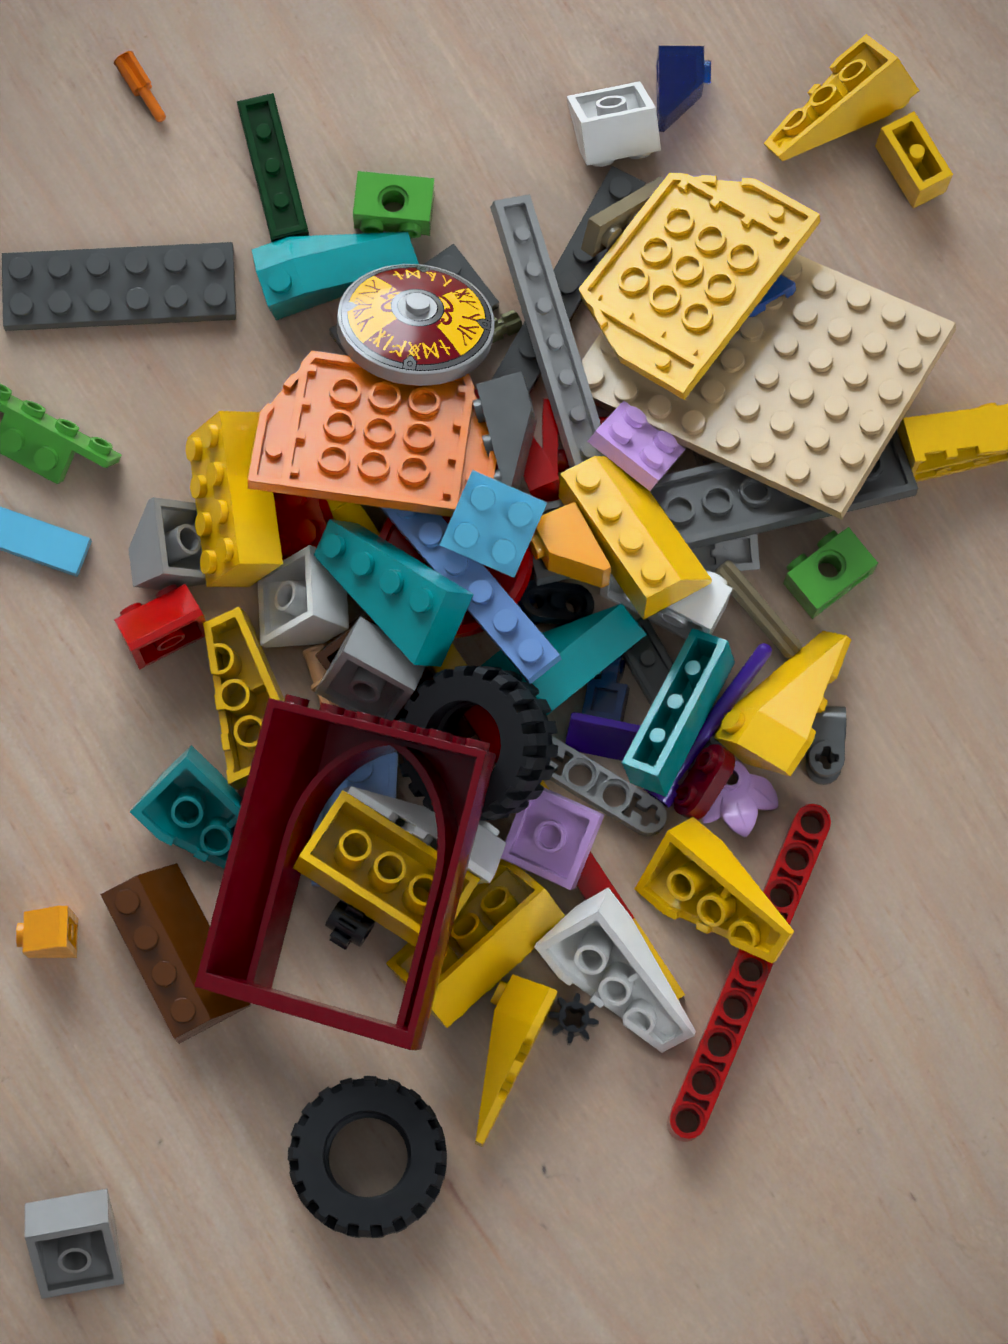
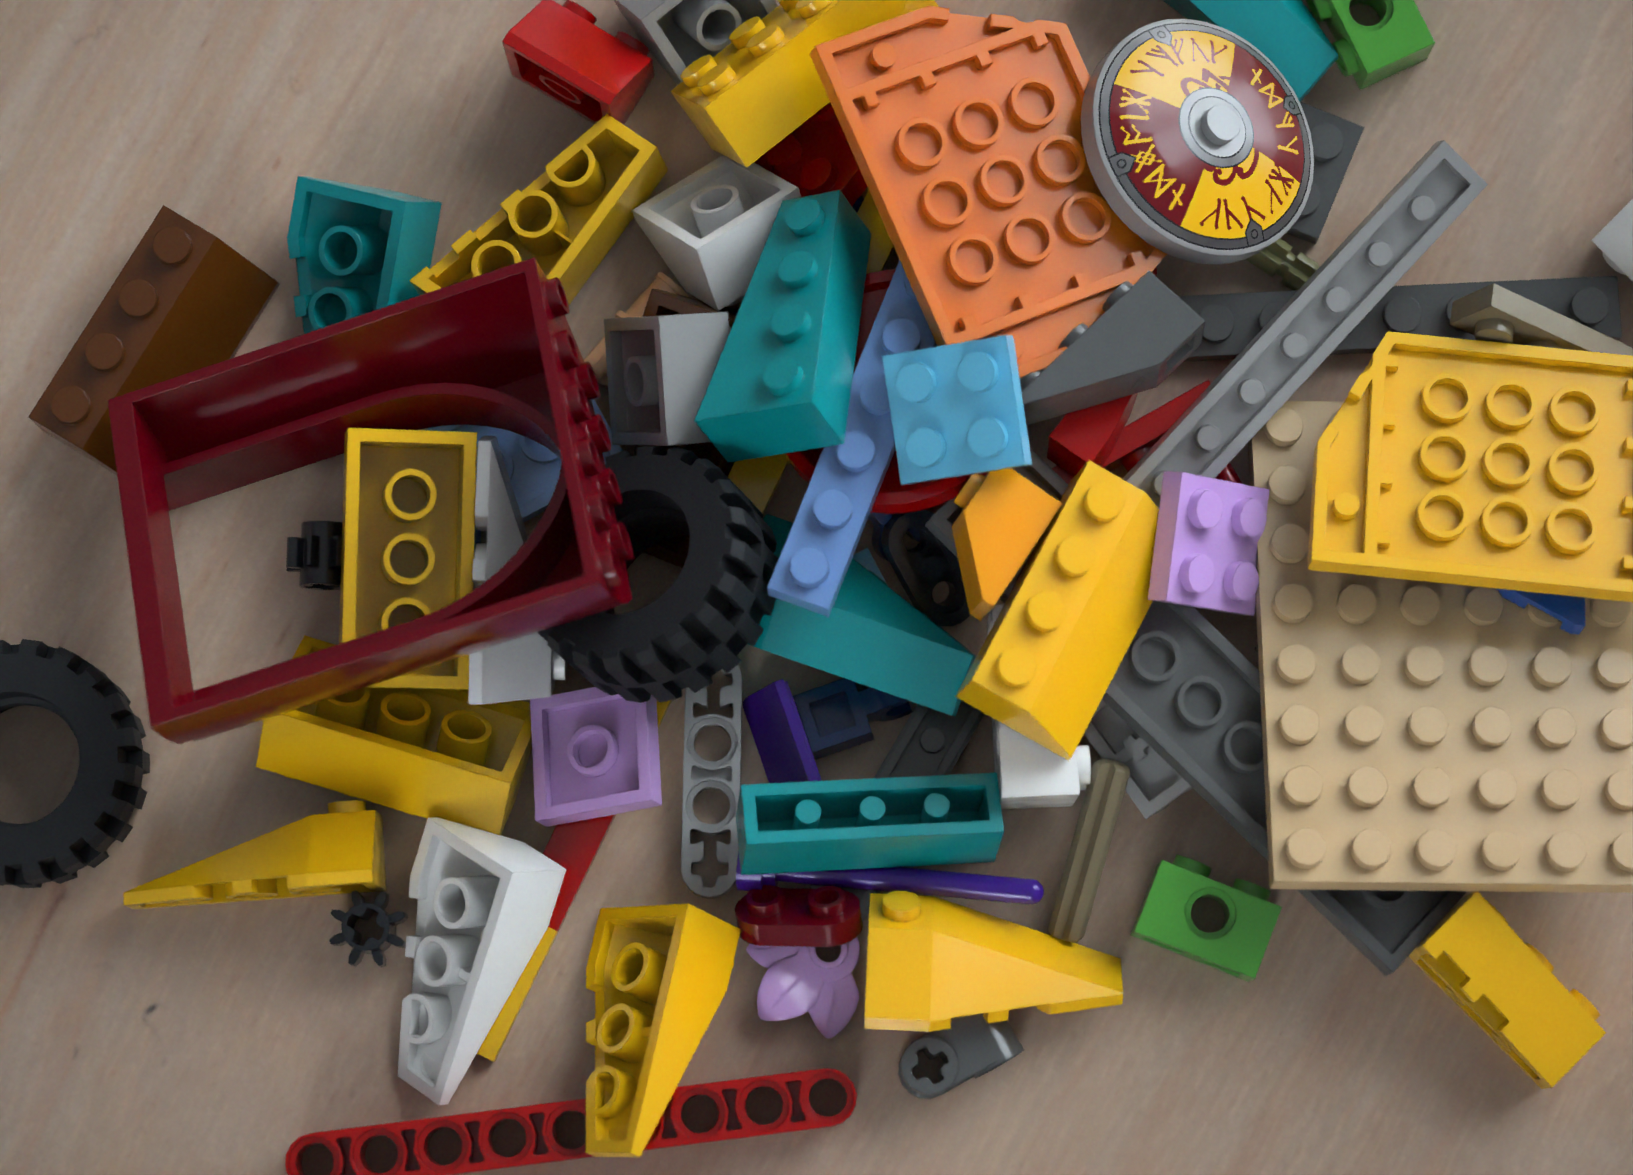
camera: 65 degrees right, 5 degrees up
(48, 933) = (80, 175): light orange slope -> none

